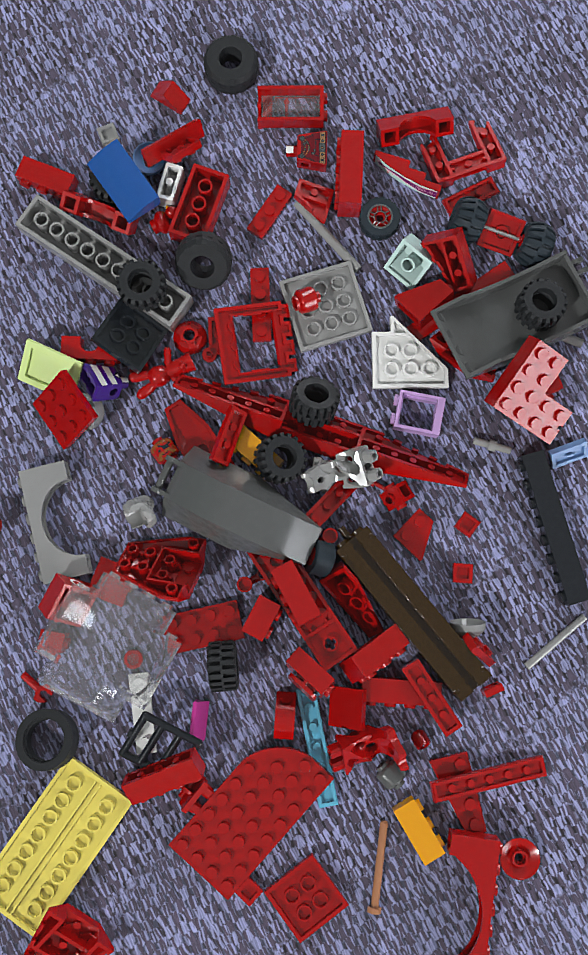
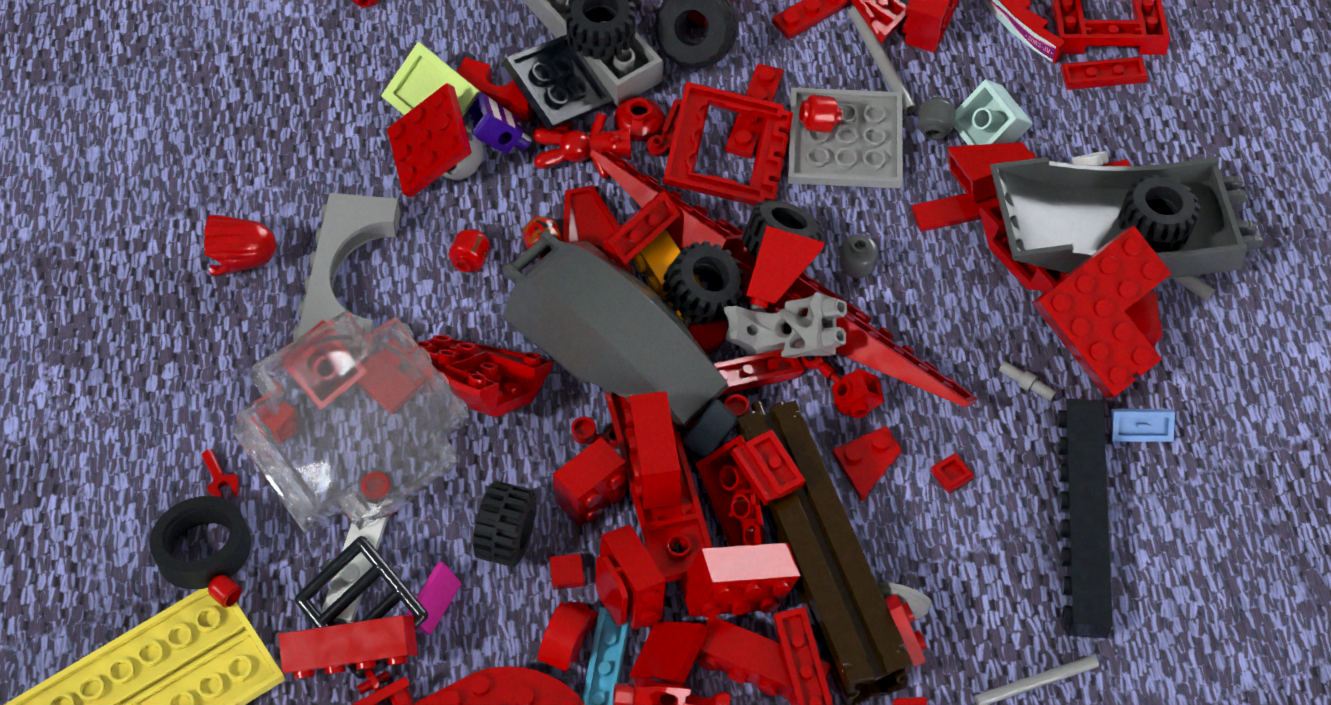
camera: 20 degrees right, 25 degrees down
(75, 767) = (224, 590): none -> red piece
(123, 477) = (469, 250): none -> red head
(140, 512) = (472, 298): light grey hair -> none
(207, 624) = (482, 466): red plate -> none
(267, 672) = (567, 571): none -> red tile
(289, 488) = (710, 335): none -> red tile
(325, 433) = (779, 264): none -> red slope
(364, 402) = (858, 256): none -> dark grey head
(368, 583) = (768, 467): none -> red plate
(378, 272) = (936, 118): none -> dark grey head
(379, 208) = (975, 57): black wheel -> none
(404, 362) = (934, 235): white wing -> none
(439, 403) = (940, 284): lavender window -> none
(452, 256) = (1048, 119): red wedge -> none
(462, 573) = (920, 533): red plate -> none
(484, 269) = (1093, 159): none -> white tile
(503, 231) = (1128, 117): black plate -> none

